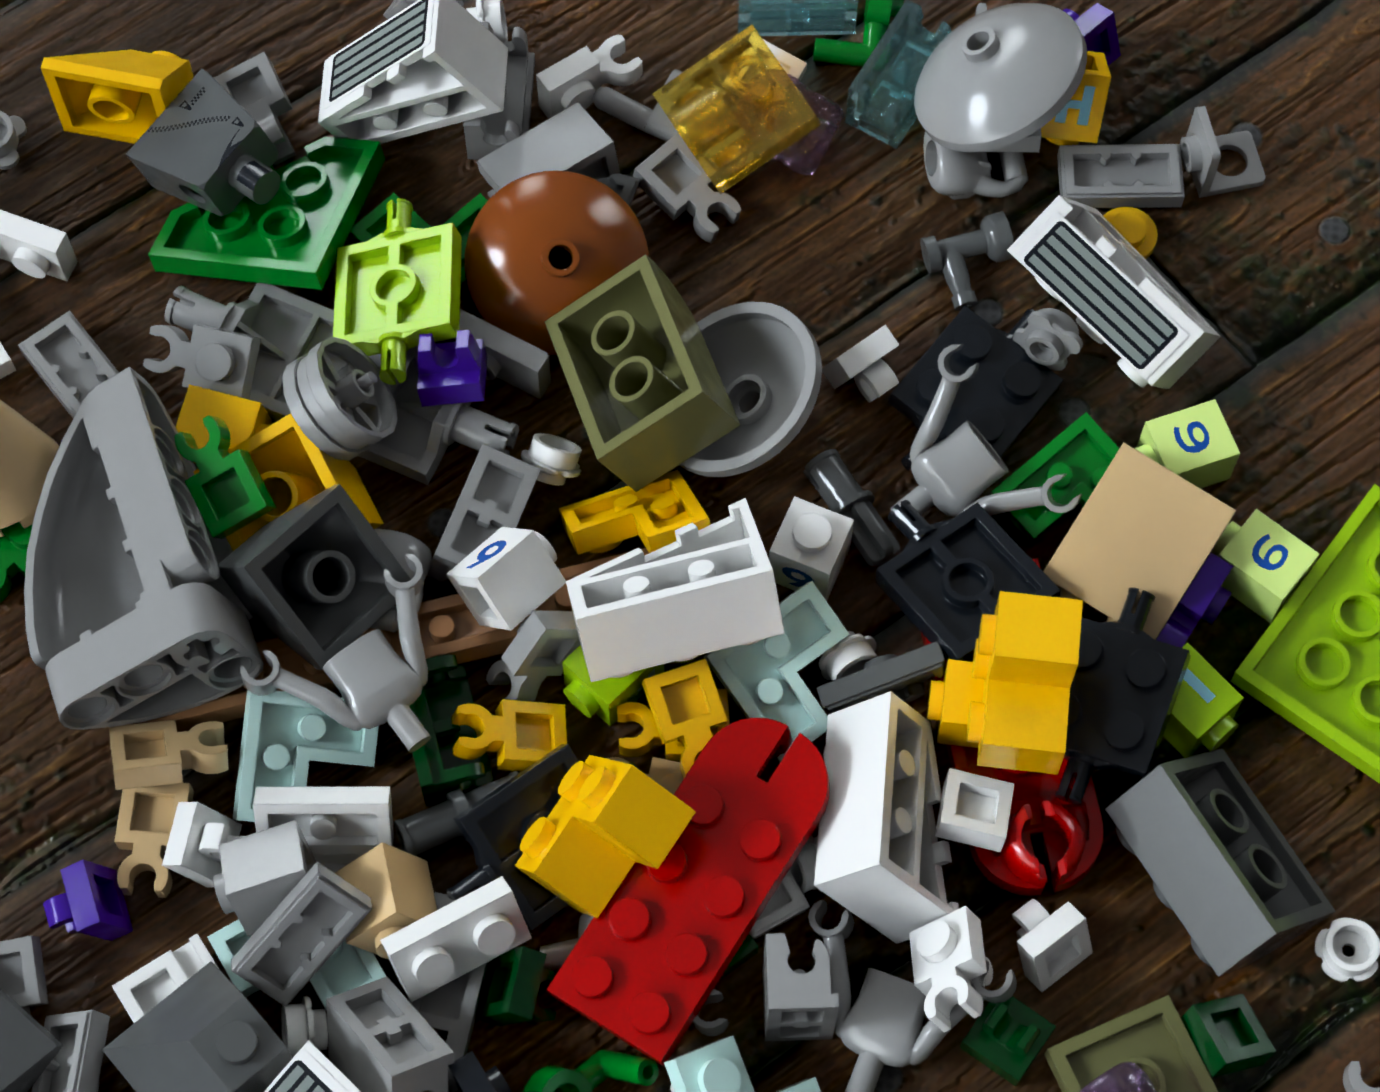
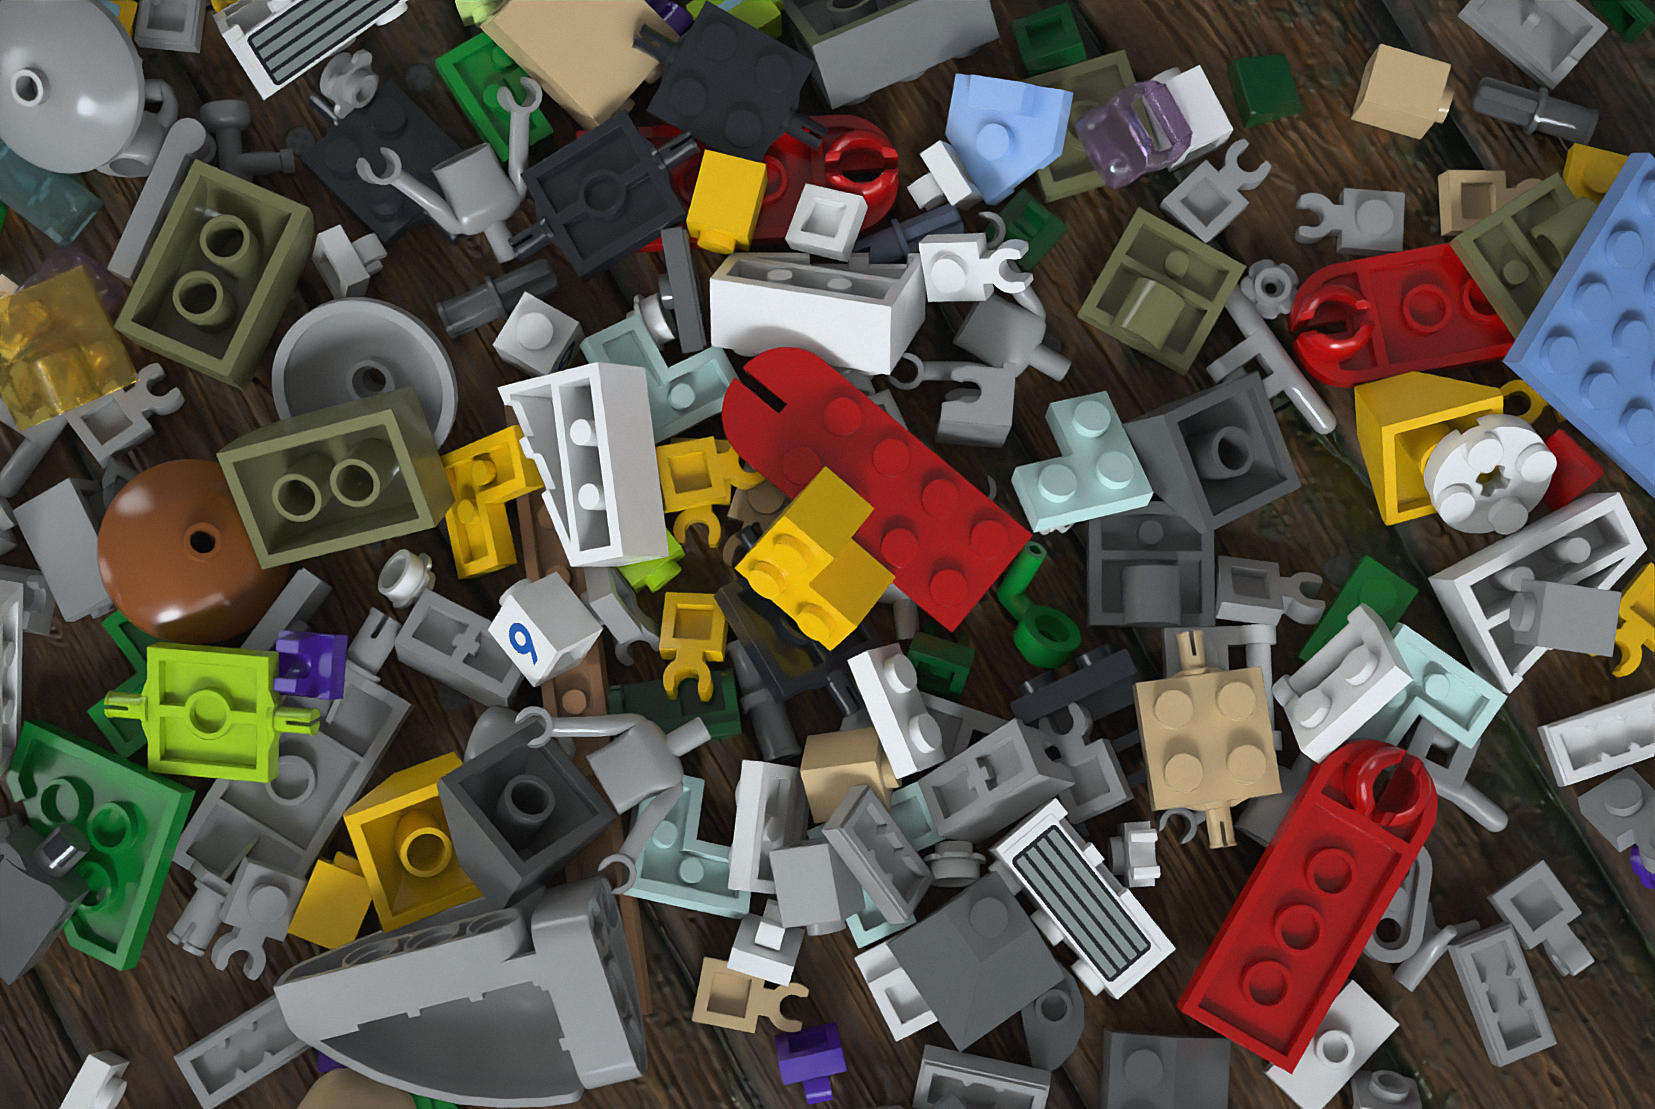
camera: 85 degrees left, 15 degrees up
(157, 753) = (677, 987): tan plate -> none
(228, 485) = (414, 897): green plate -> none
(339, 399) = (333, 776): light grey wheel -> none
(829, 245) = (219, 275): none -> olive brick
(898, 192) = (183, 145): none -> light grey plate
(967, 888) = (895, 242): none -> sand blue axle
(1027, 669) = (734, 147): yellow brick -> none
(1113, 995) = (1005, 130): none -> light blue plate

